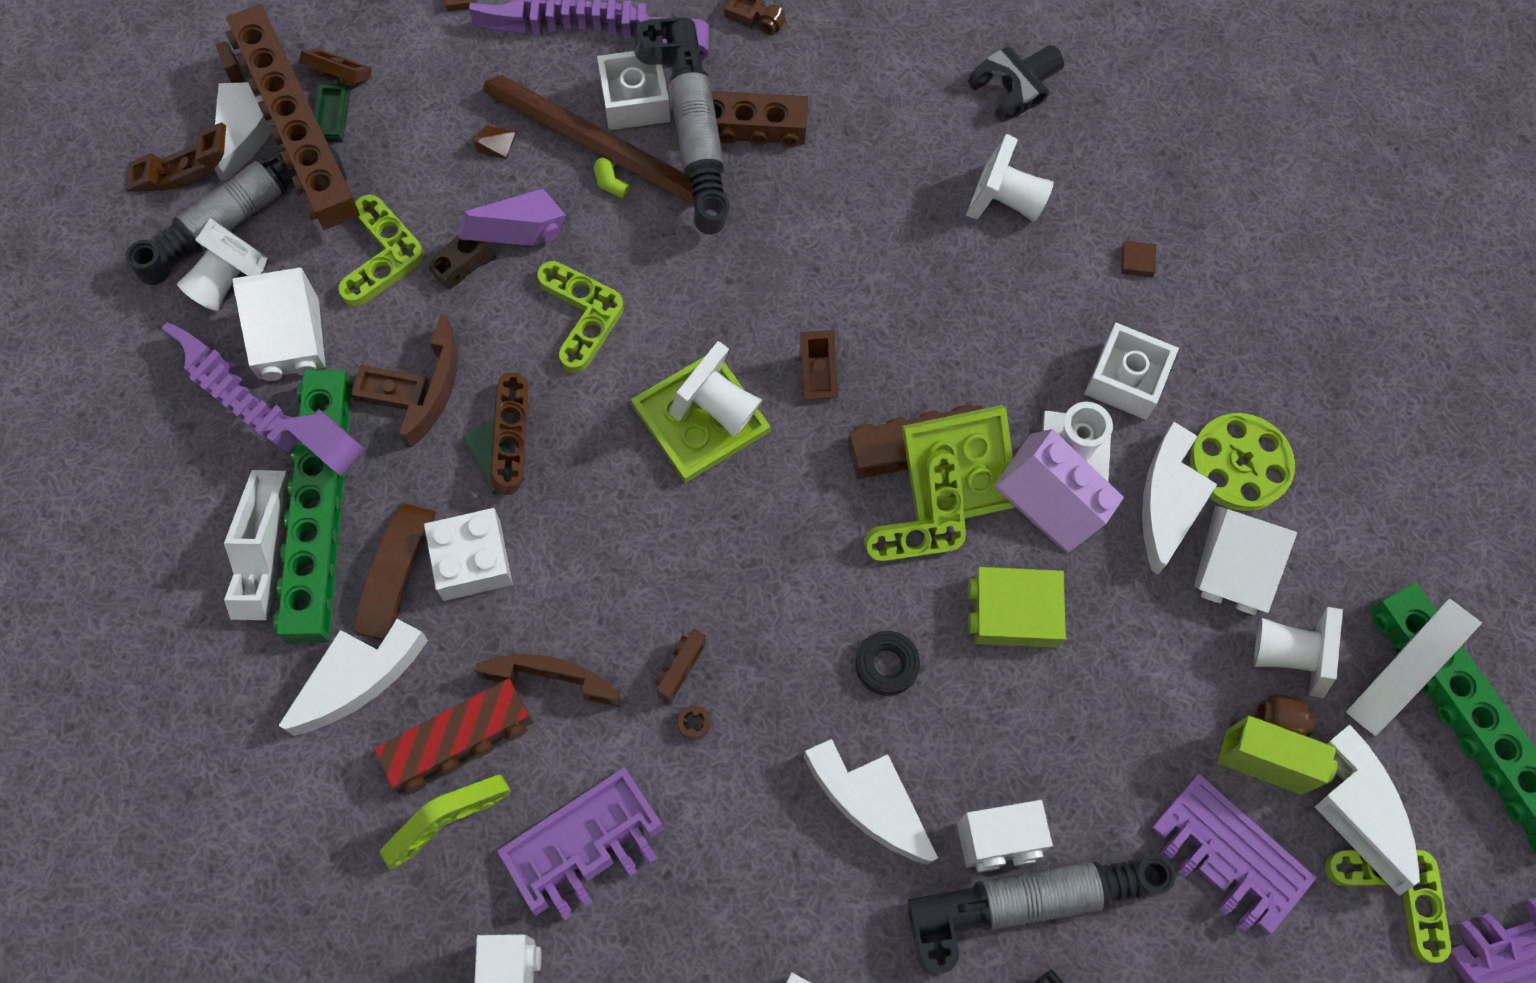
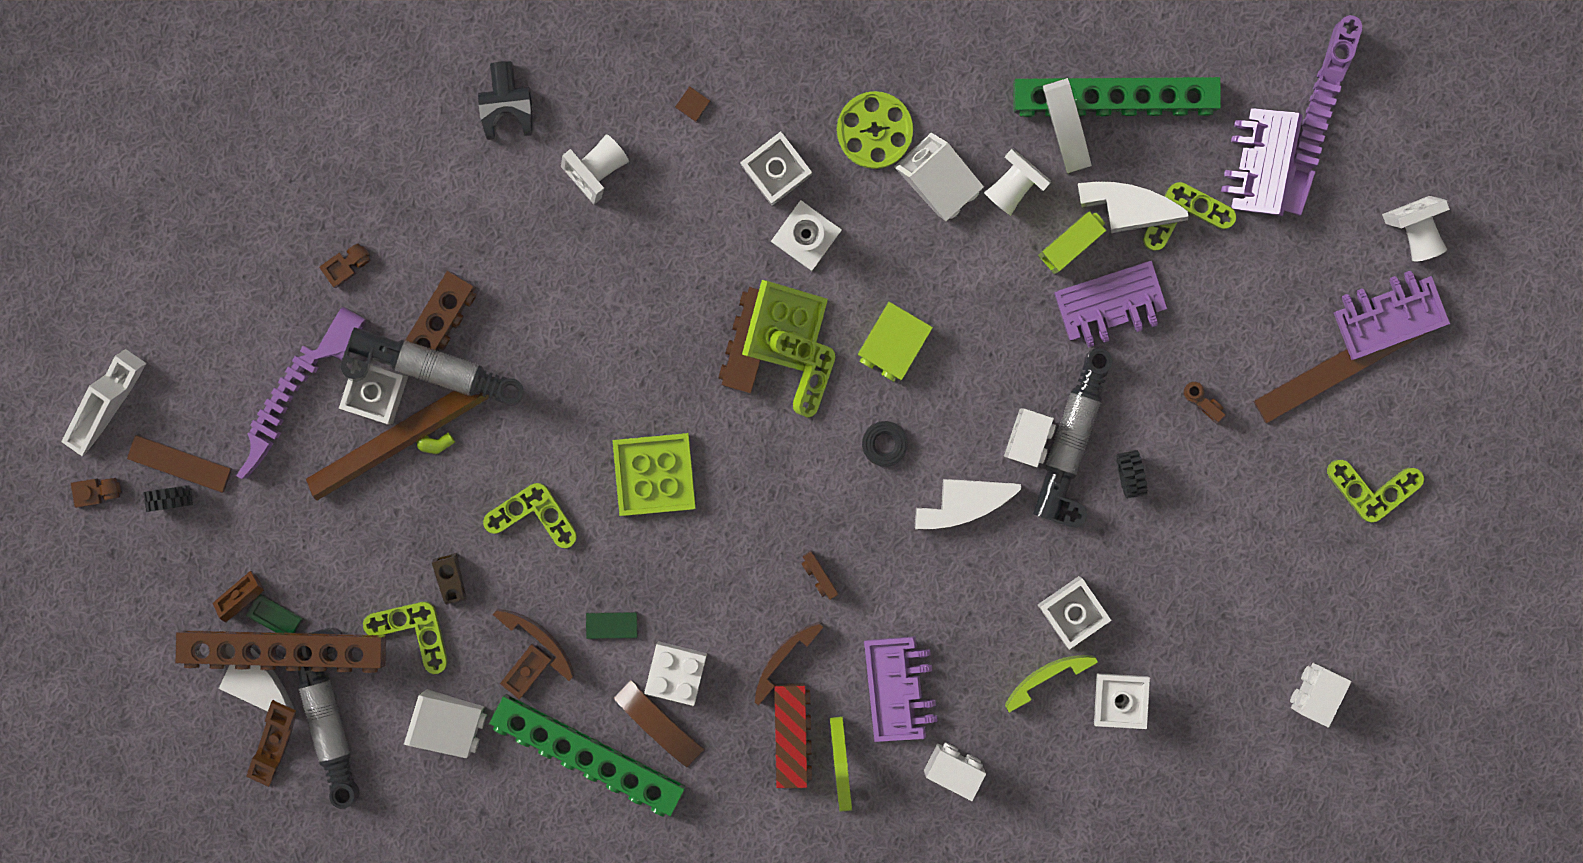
camera: 60 degrees left, 20 degrees up
(214, 272) = (373, 741): white plant -> none
(229, 62) = (203, 672): reddish brown tile -> none
(256, 544) = (597, 803): white slope -> none
(315, 431) = (550, 734): medium lavender piece -> none
(352, 677) = (719, 780): white slope -> none
(494, 141) = (360, 509): reddish brown slope -> none
(509, 432) = (603, 605): reddish brown beam -> none
(516, 220) = (446, 525): medium lavender slope -> none
(696, 711) = (852, 579): reddish brown bush -> none
(715, 394) = (654, 461): white plant -> none
(818, 364) = (662, 378): reddish brown slope -> none
(1058, 490) = (834, 273): lavender slope -> none
(1171, 497) = (875, 195): white slope -> none
(1286, 713) = (1052, 219): reddish brown head -> none

